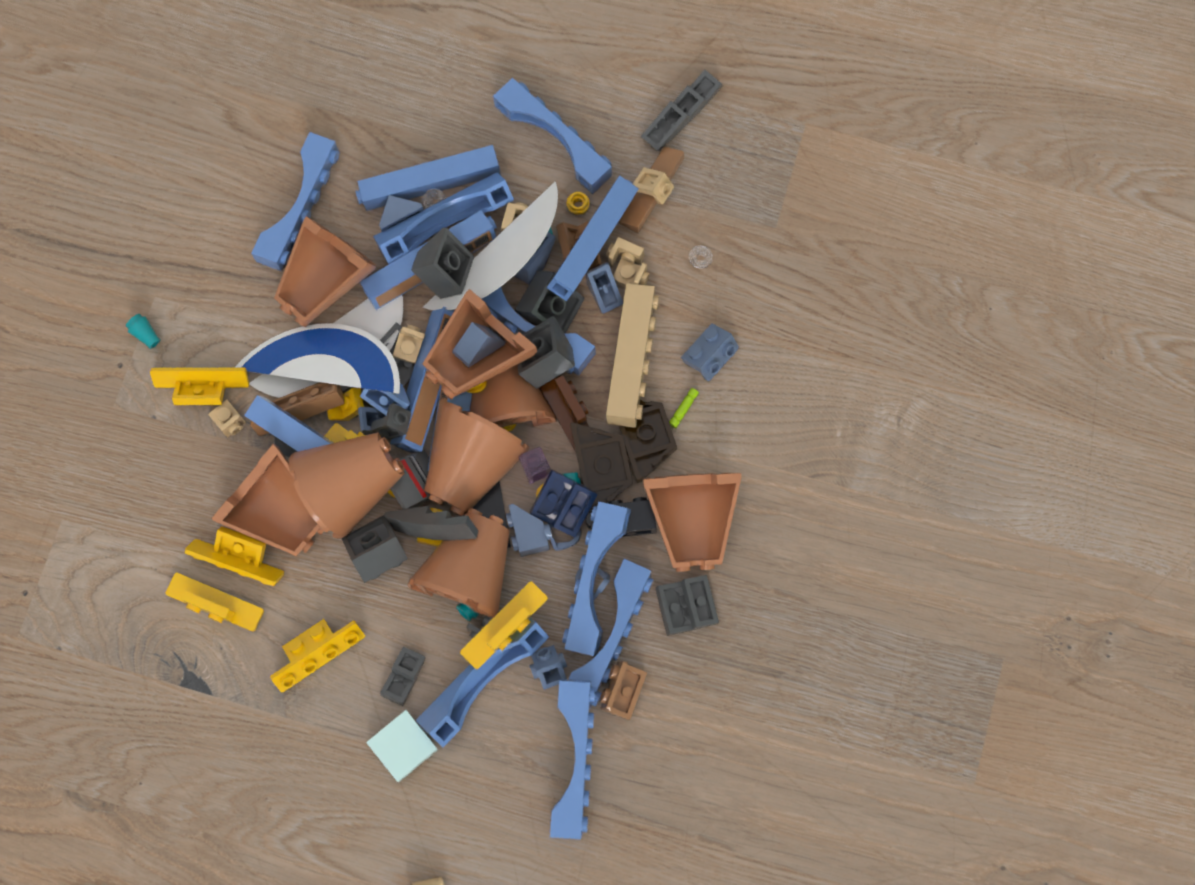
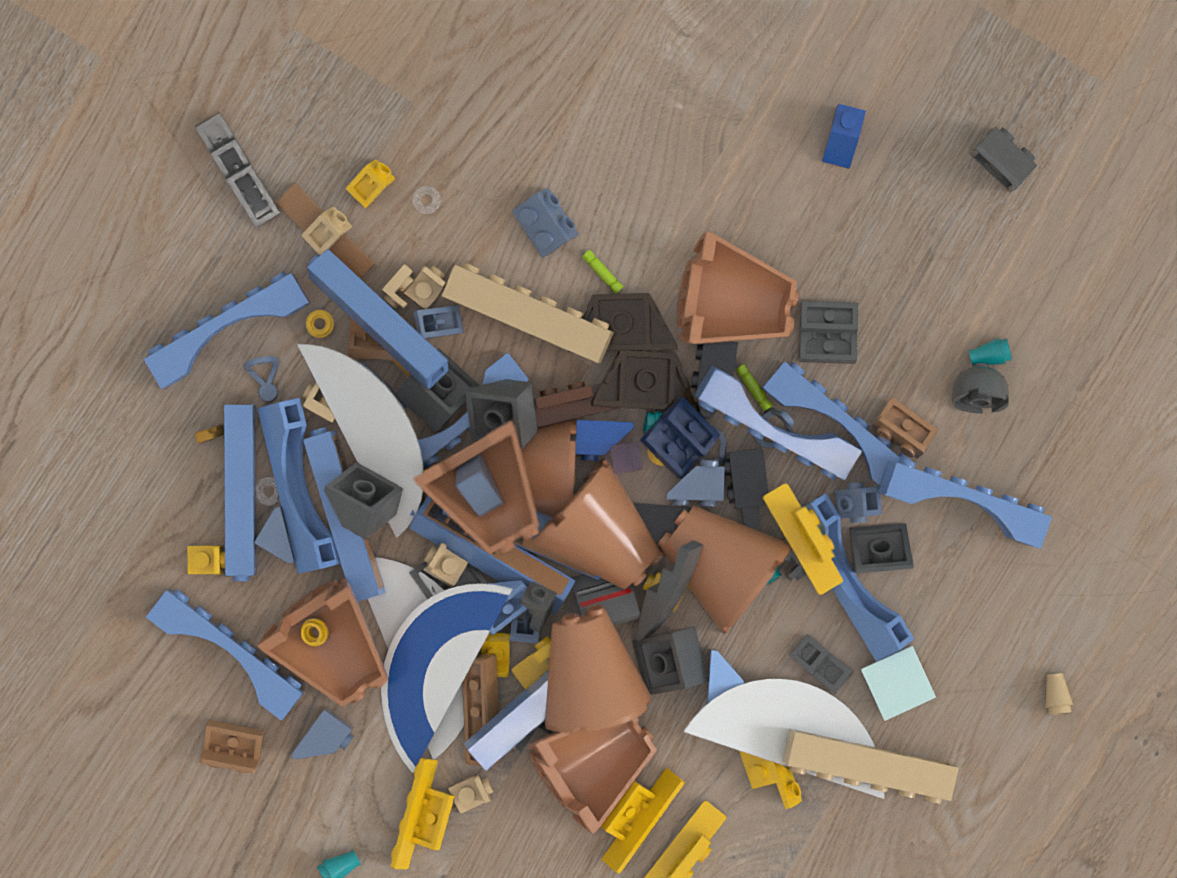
camera: 80 degrees left, 15 degrees up
(222, 225) = (232, 747): none -> medium nougat bracket
(248, 292) = (324, 736): none -> sand blue slope
(324, 739) = (869, 765): none -> tan brick
(329, 261) = (307, 635): none -> yellow plate
(341, 667) = (761, 712): none -> white sticker
(366, 597) = (721, 676): none -> light blue slope
(367, 166) = (206, 559): none -> yellow bracket
(463, 139) = (209, 434): none -> pearl gold tile
(513, 180) = (267, 391): none -> sand blue piece
(514, 698) = (880, 548): none -> dark grey slope
(543, 570) = (748, 483): none -> black hinge
(545, 434) = (597, 437): none -> blue slope
(623, 554) = (753, 387): none -> lime wheel
(674, 745) = (980, 388): none -> dark grey cylinder
(701, 209) = (370, 182): none -> yellow bracket
(709, 749) = (991, 353): none -> teal cone
(856, 570) = (843, 136): none -> blue slope
(880, 710) = (1004, 158): none -> dark grey slope

